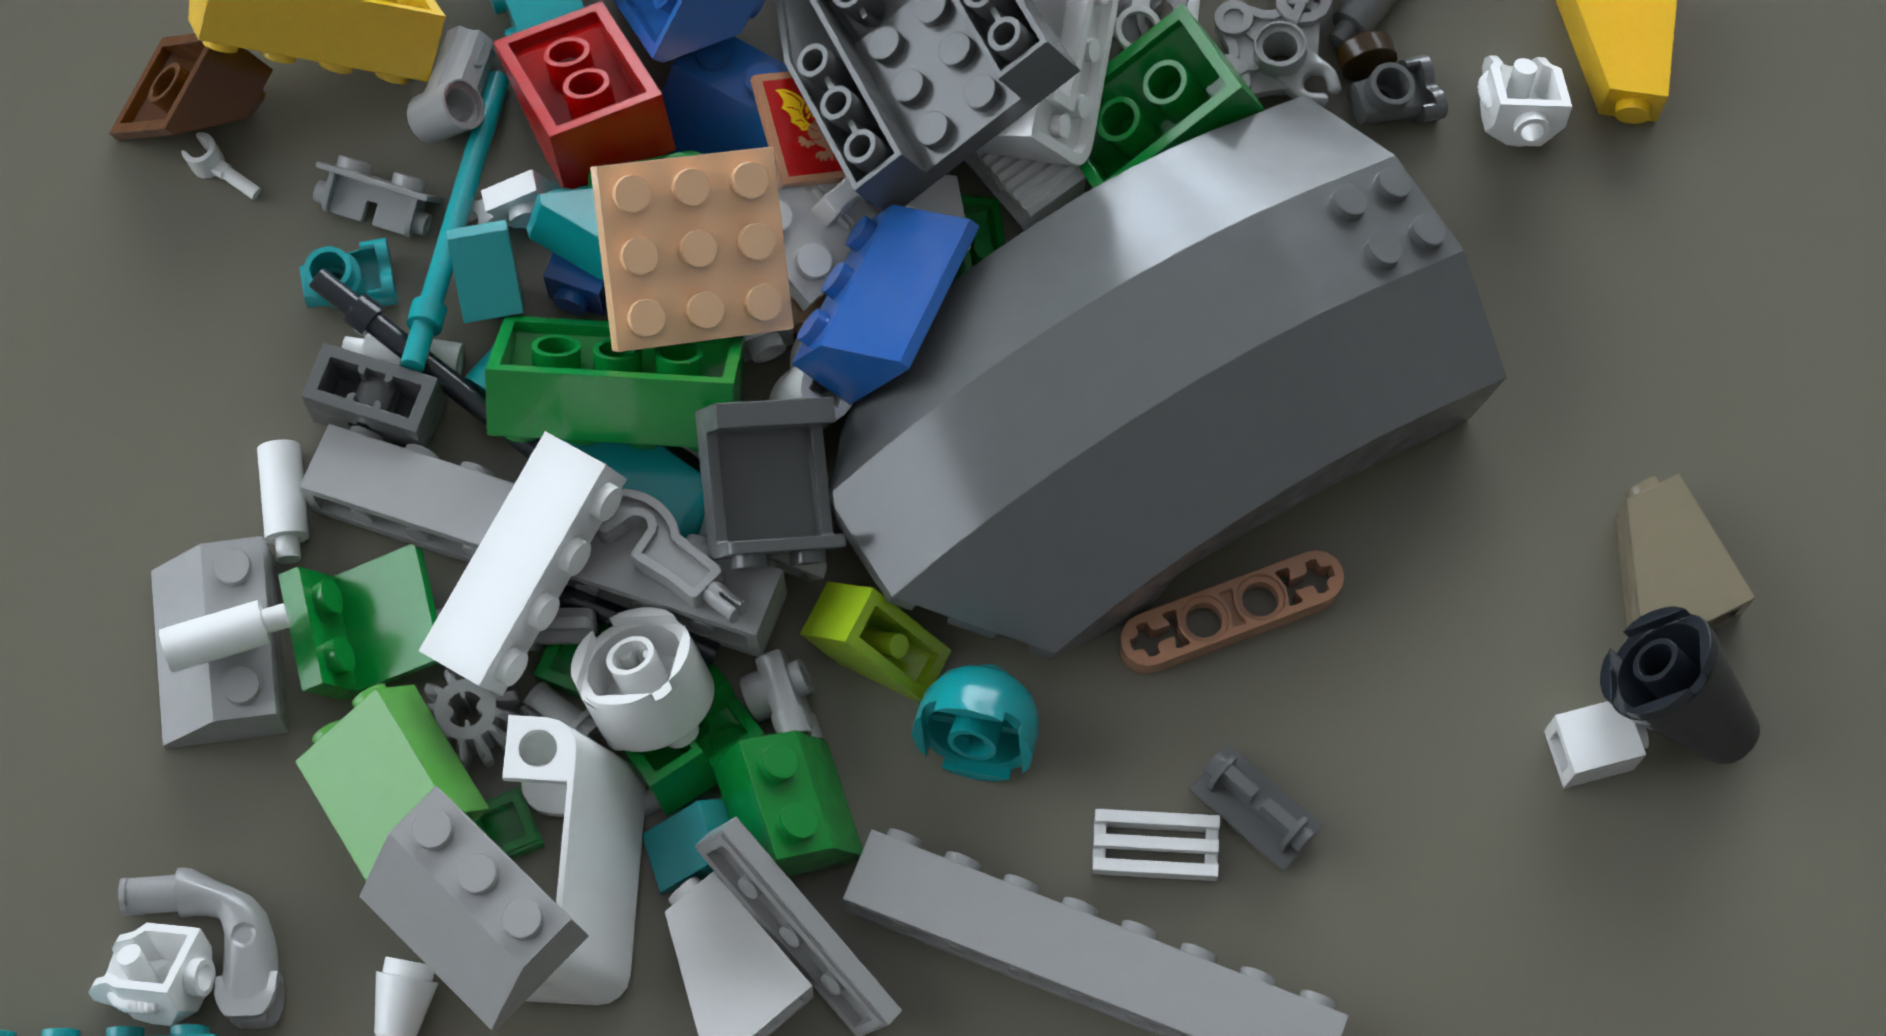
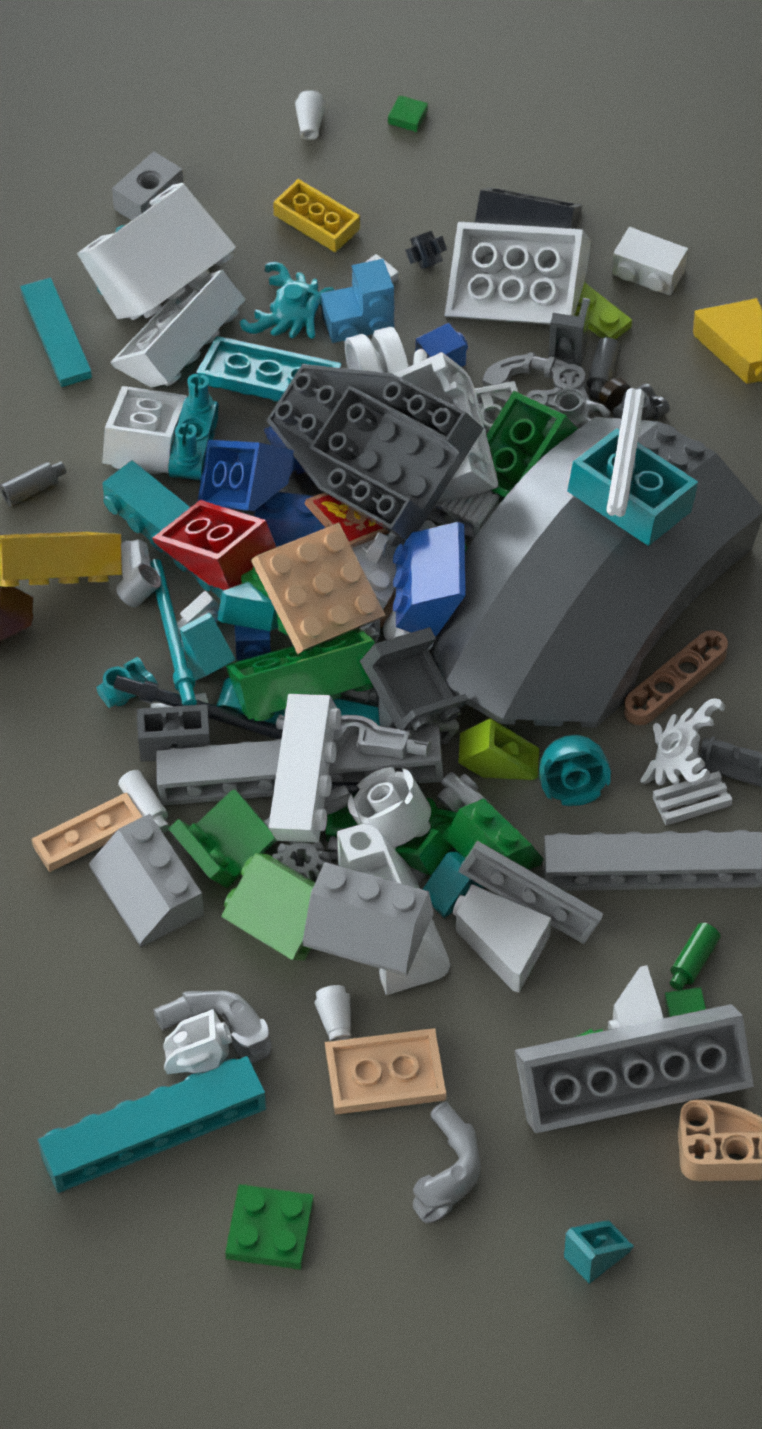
camera: 20 degrees left, 15 degrees down
(168, 517) = (84, 832): none -> light nougat plate
(214, 164) = (17, 658): white hand -> none
(221, 634) = (157, 859): white cylinder -> none
(353, 187) = (132, 637): light grey hinge -> none
(1171, 753) = (680, 745): none -> white animal
(1264, 289) = (657, 494): none -> teal brick
(1269, 233) = (625, 452): none -> white axle
(1523, 101) = (708, 387): white hand -> none

